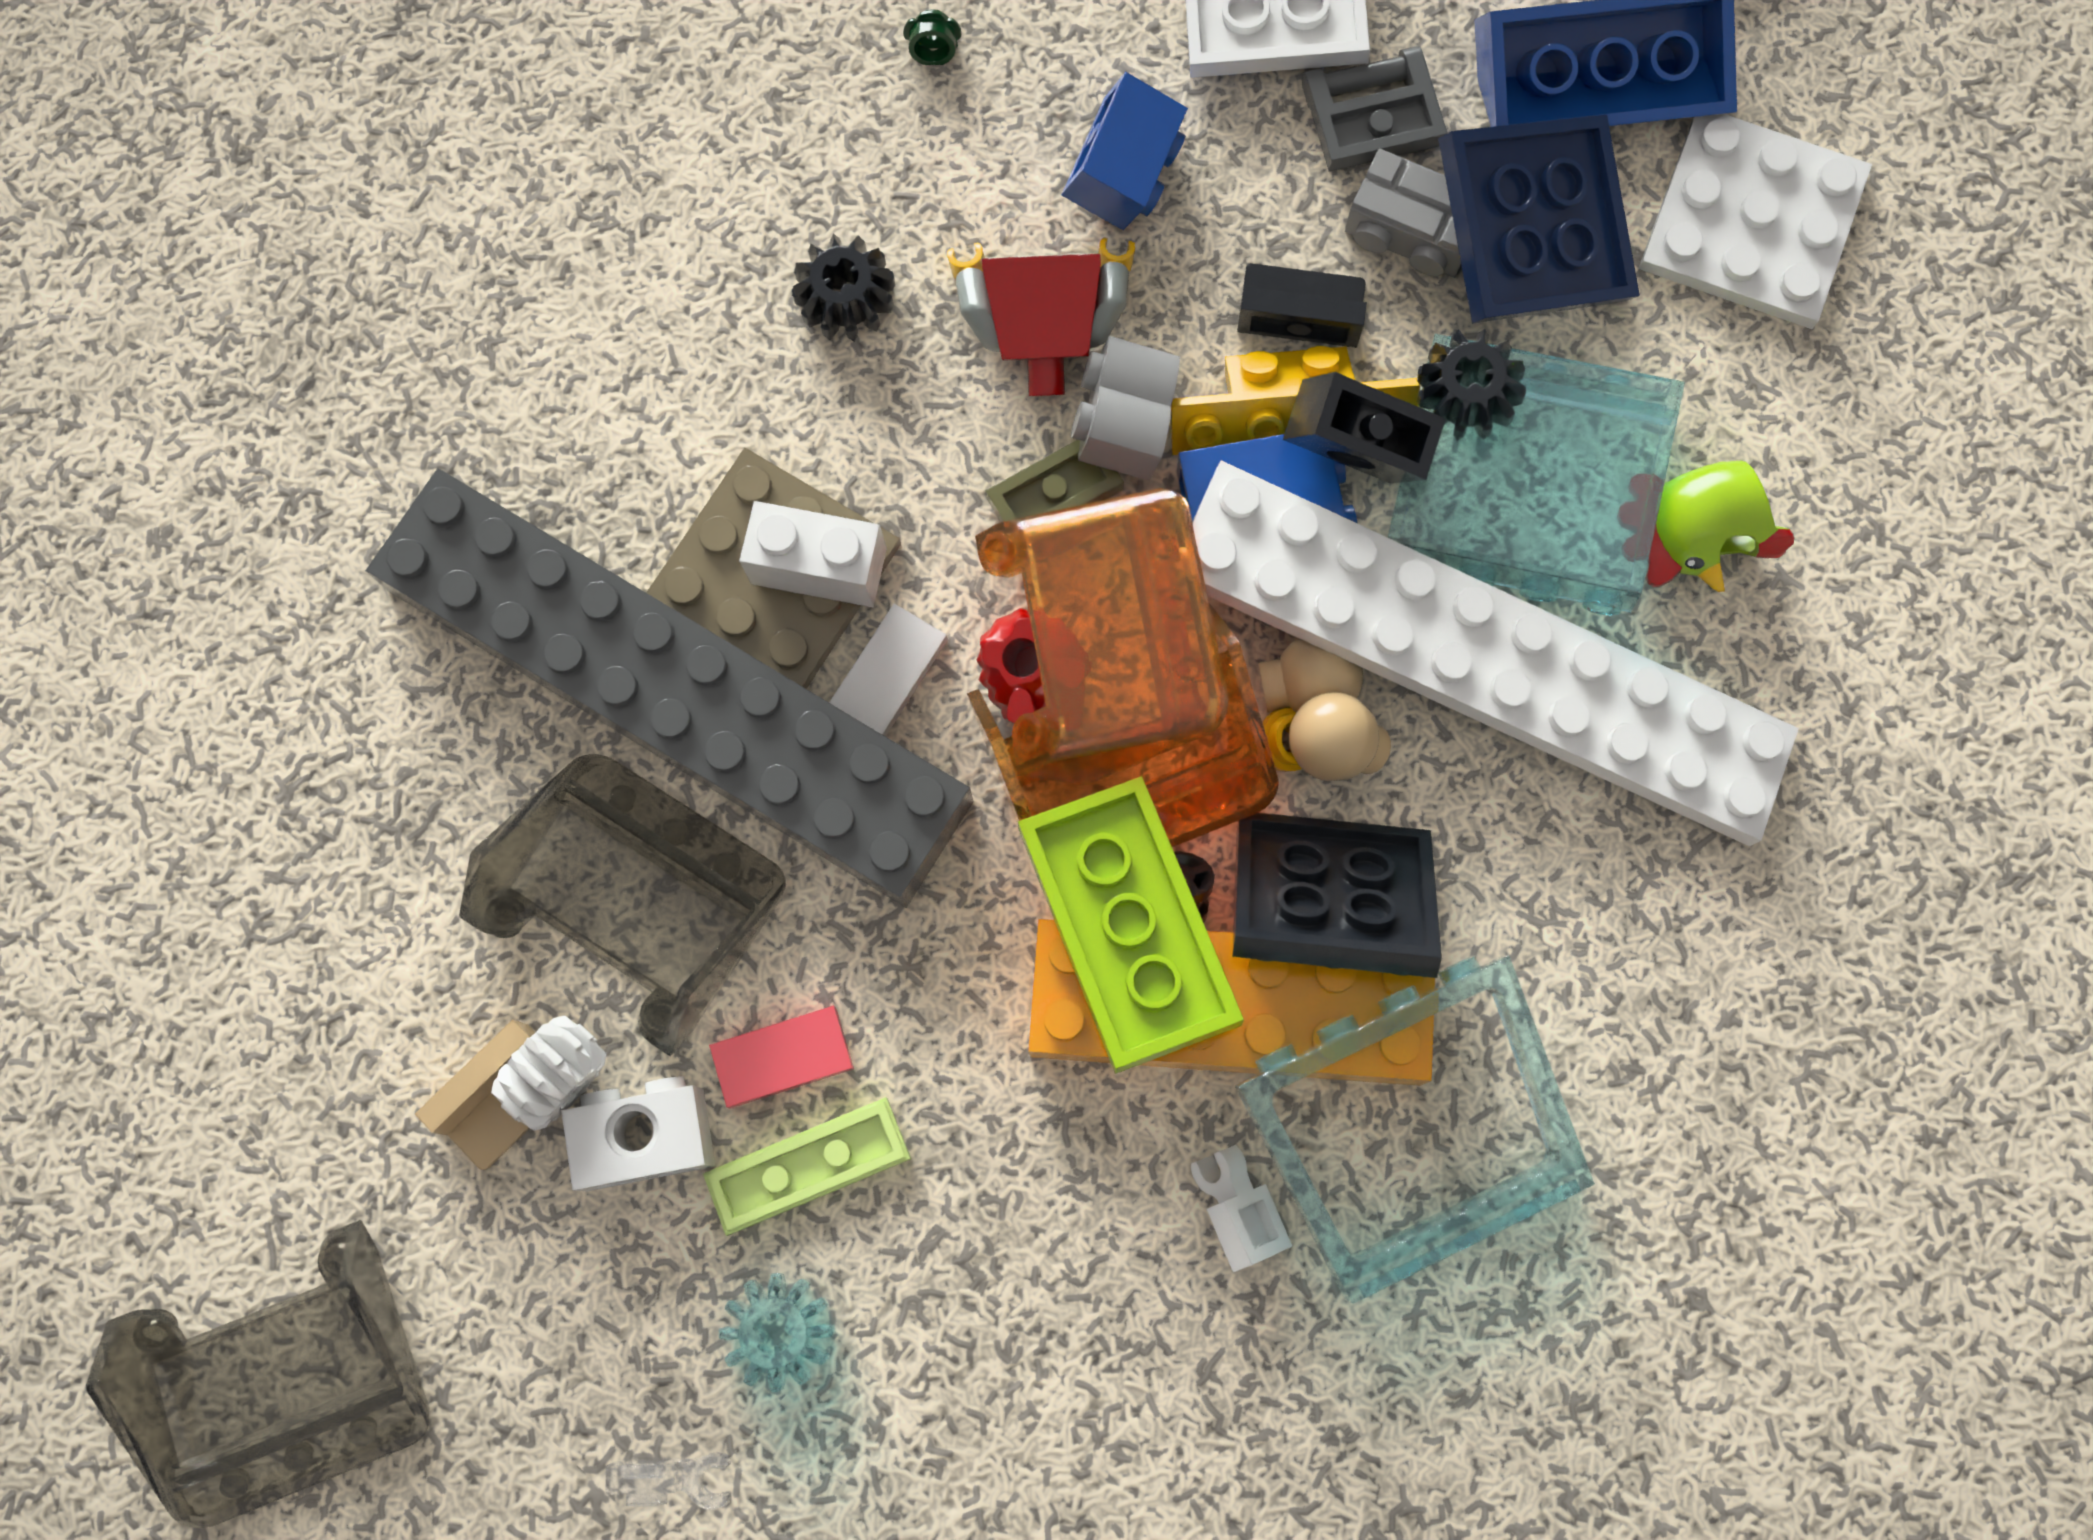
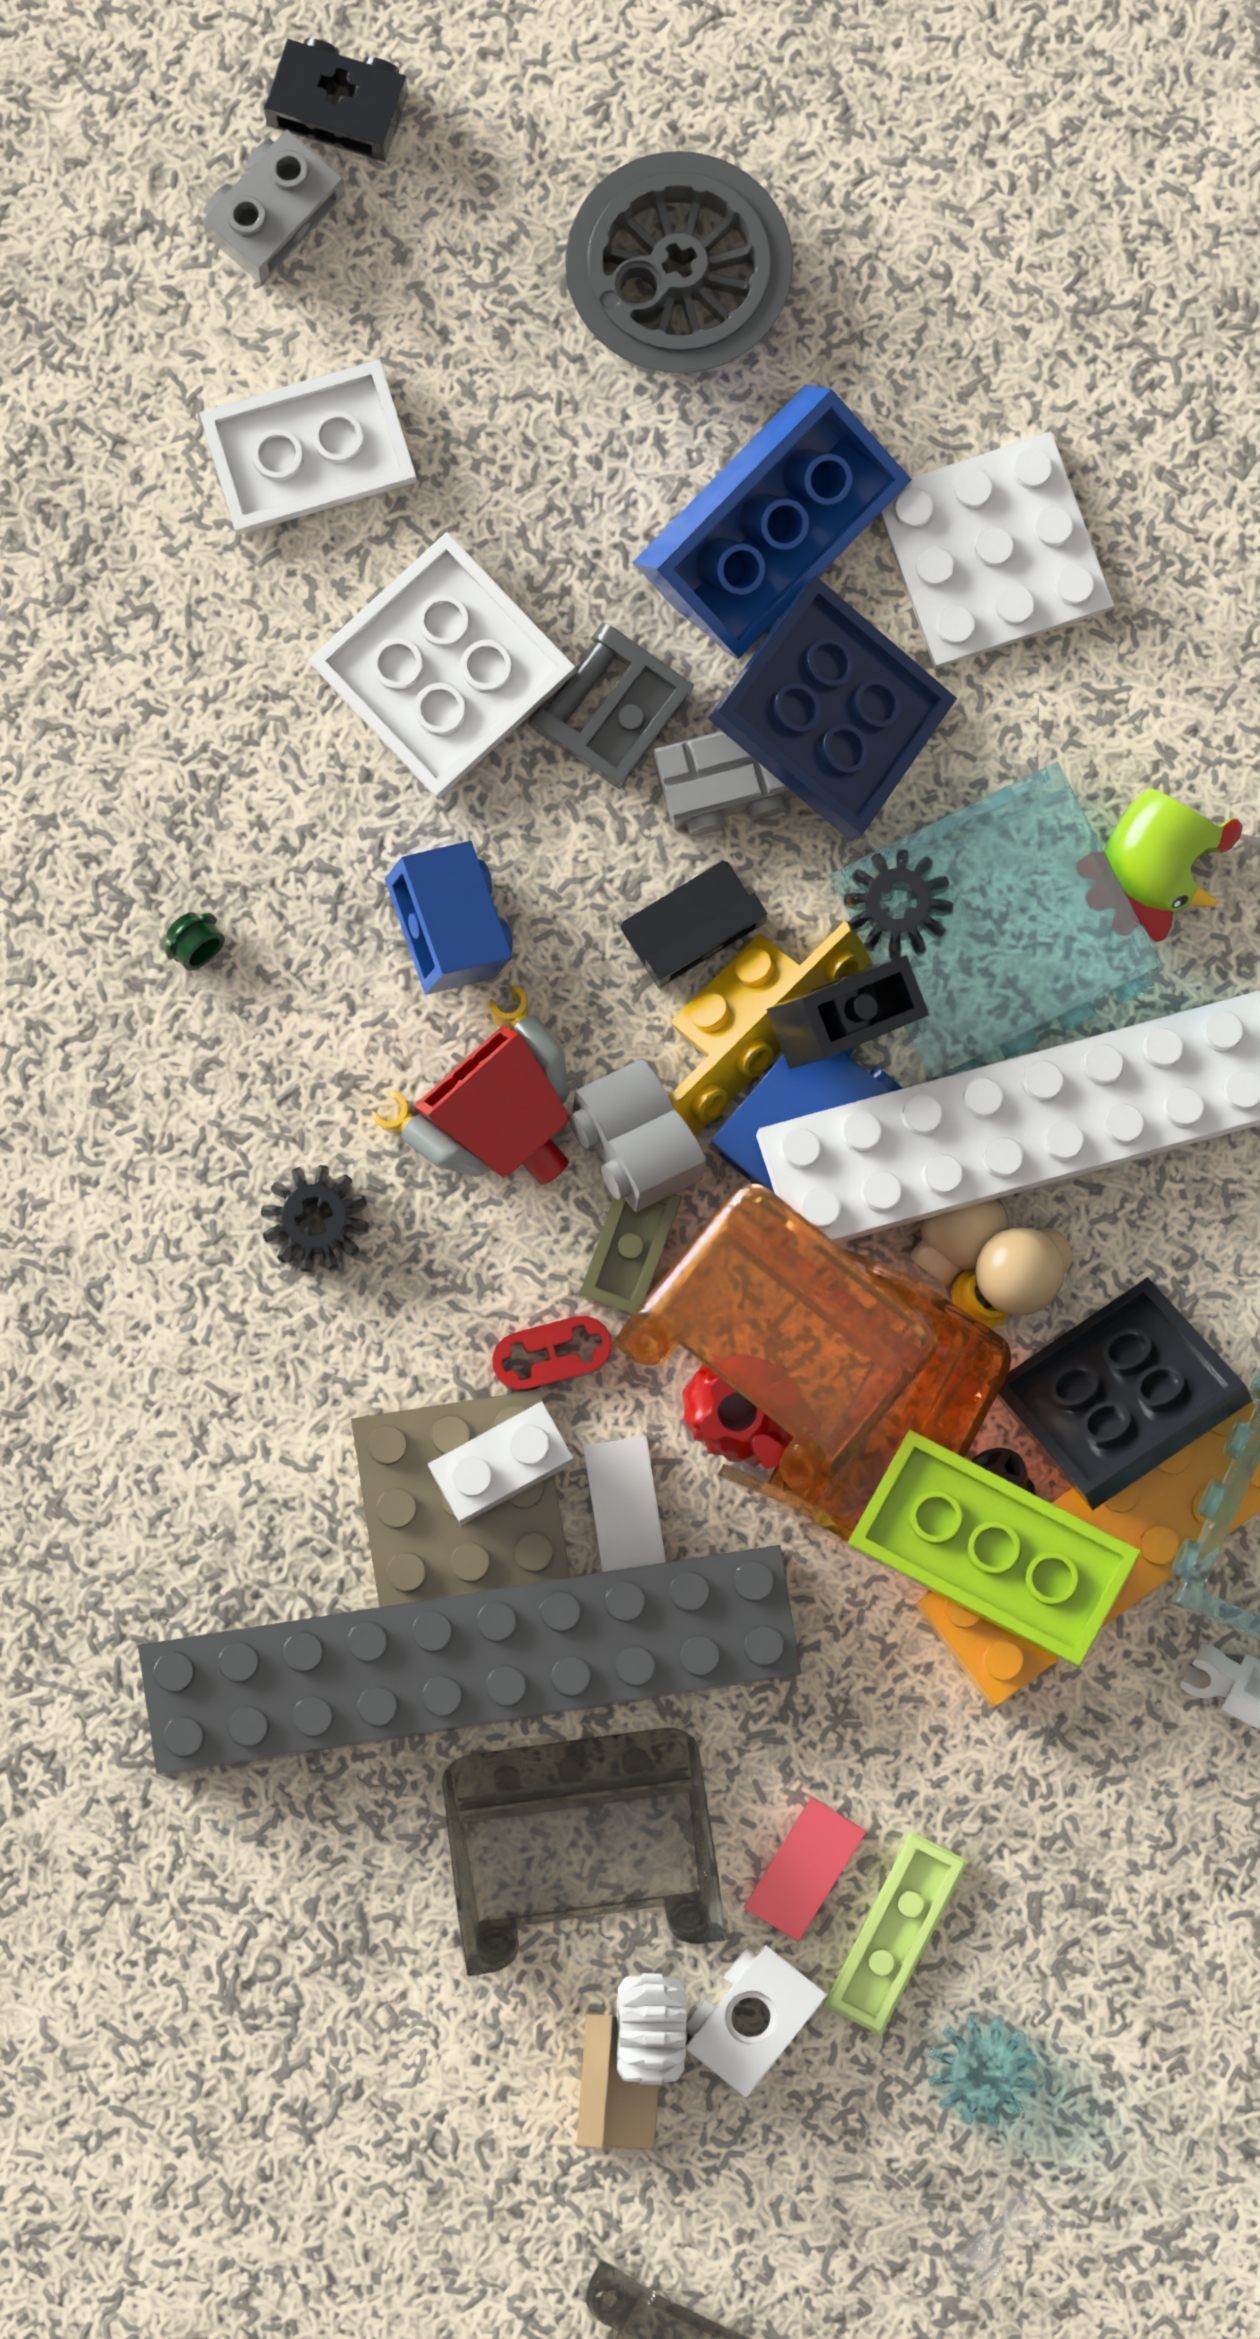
camera: 50 degrees left, 5 degrees up
(936, 507) = (547, 1338): none -> red beam

